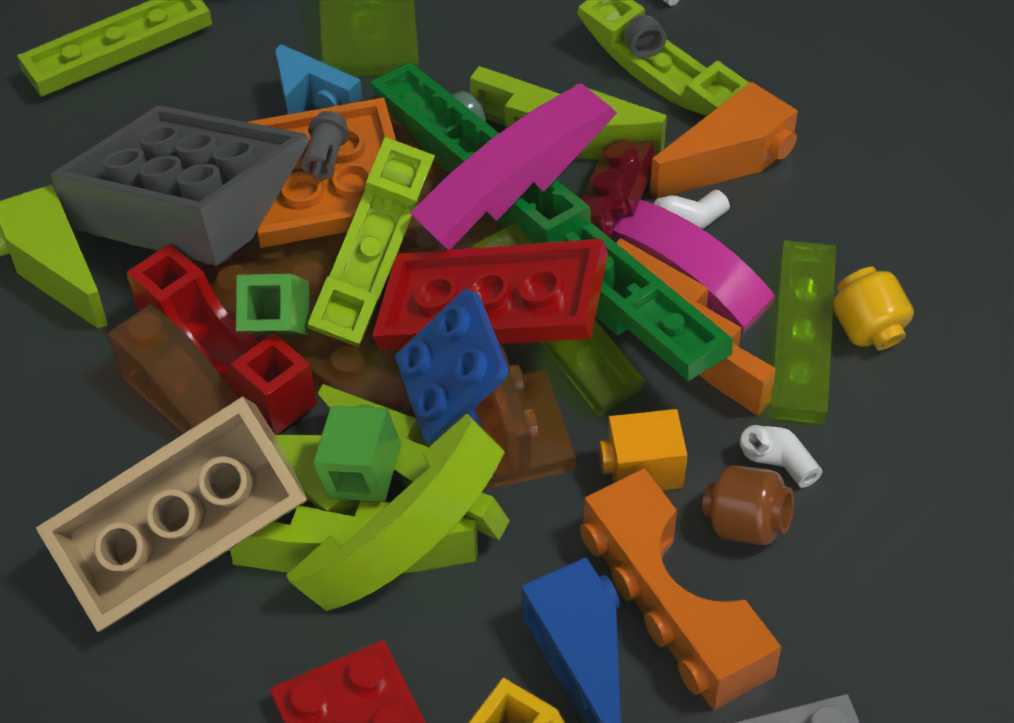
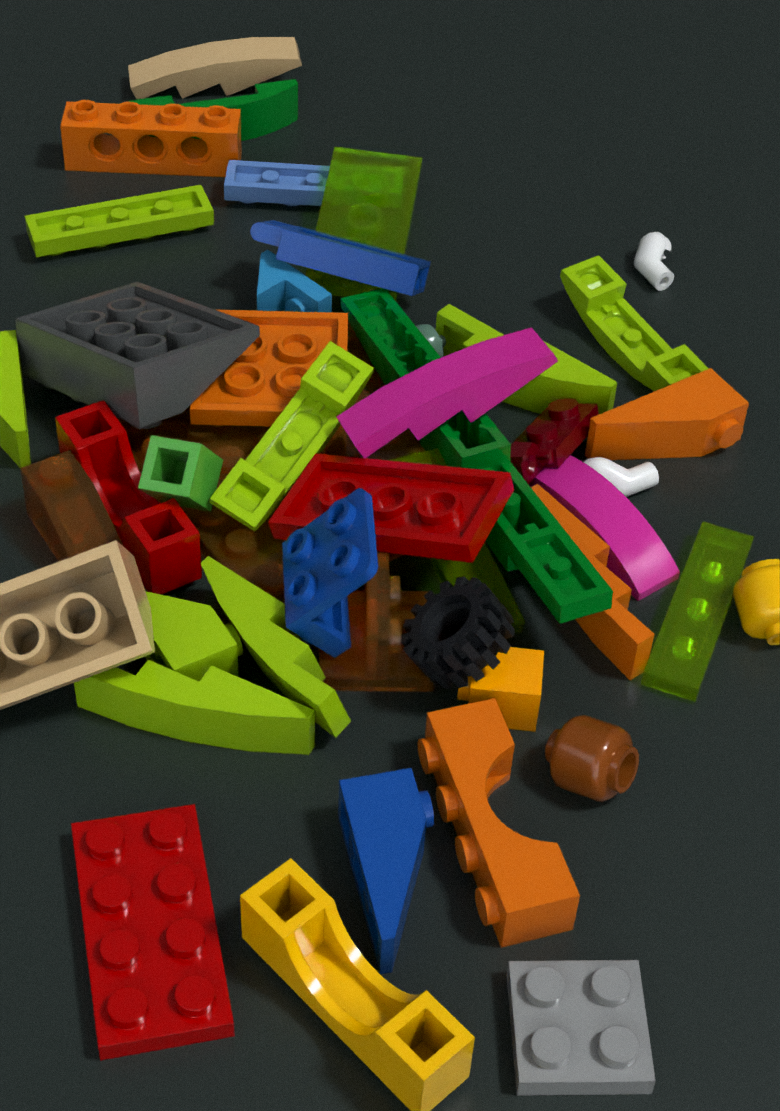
camera: 10 degrees right, 5 degrees down
(327, 134) = (280, 334): dark grey pin -> none
(357, 453) = (216, 620): bright green brick -> none
(360, 37) = (344, 257): none -> blue hinge
(408, 526) = (244, 697): lime slope -> none
(609, 425) = (457, 632): none -> black tyre
(644, 36) = (615, 310): dark grey hinge -> none
(780, 448) = (640, 713): white arm -> none

